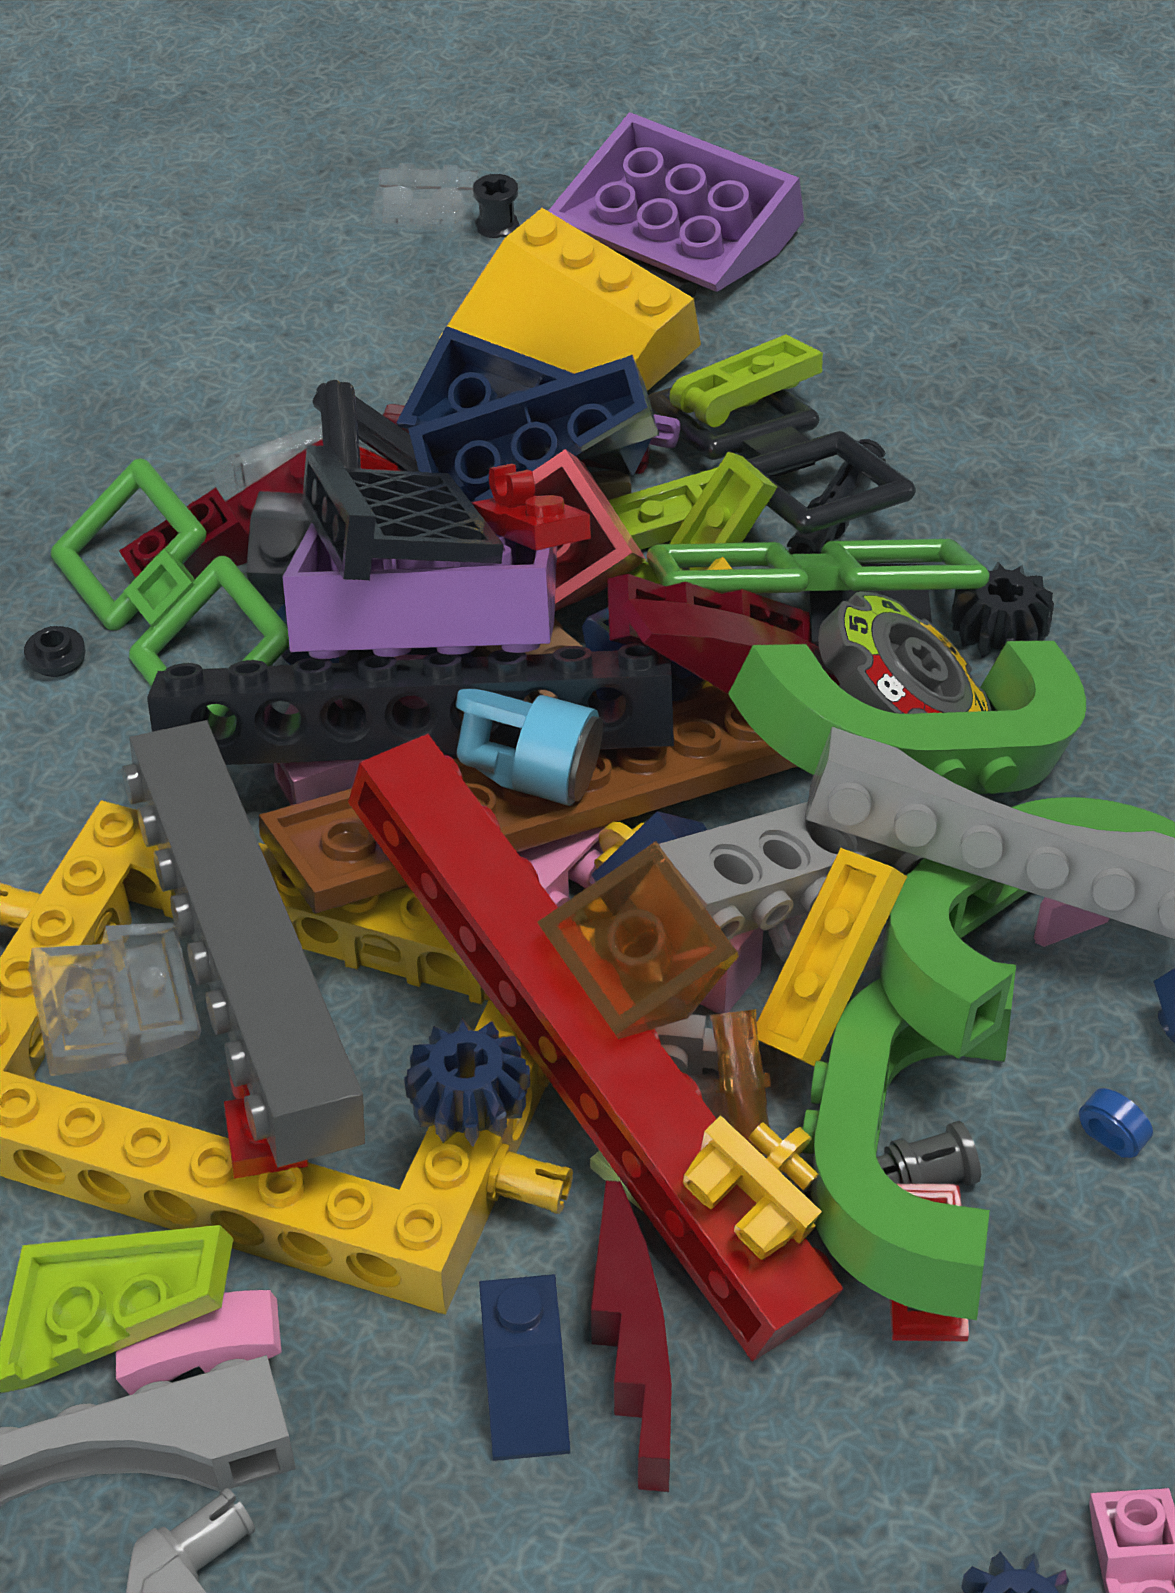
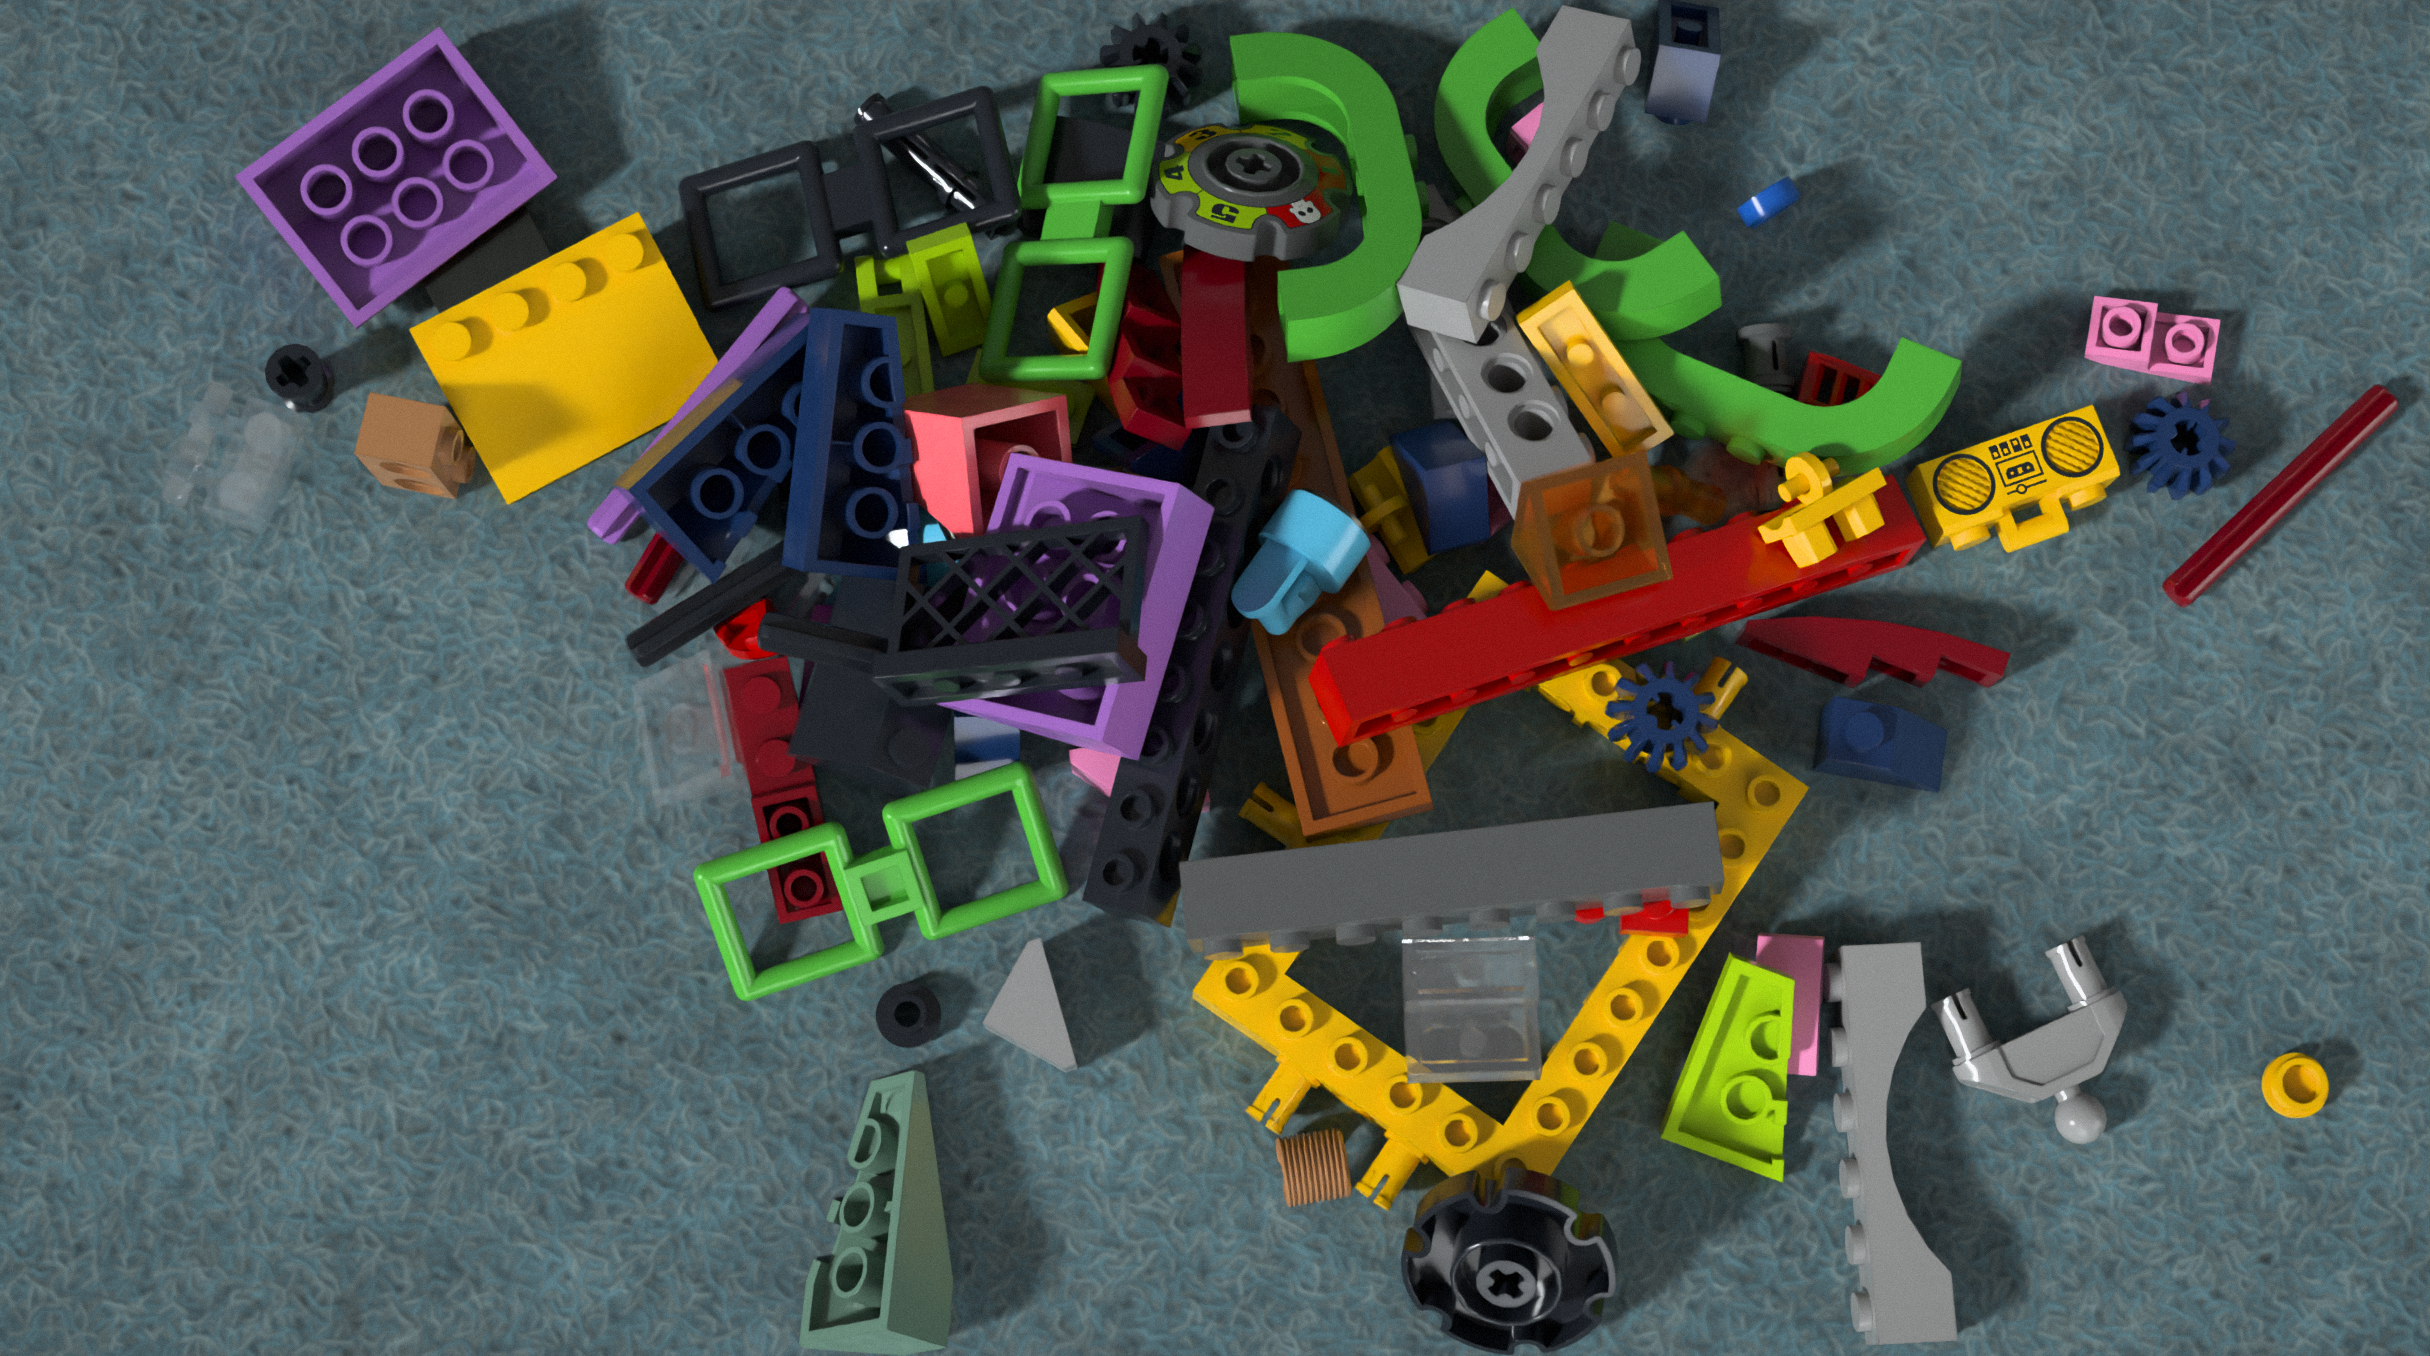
camera: 80 degrees left, 30 degrees up
(71, 721) = (1030, 1011): none -> light grey slope
(455, 246) = (414, 446): none -> medium nougat brick
(528, 518) = (1054, 480): red plate -> none
(745, 378) = (744, 193): lime plate -> none
(921, 1457) = (2038, 465): none -> yellow piece

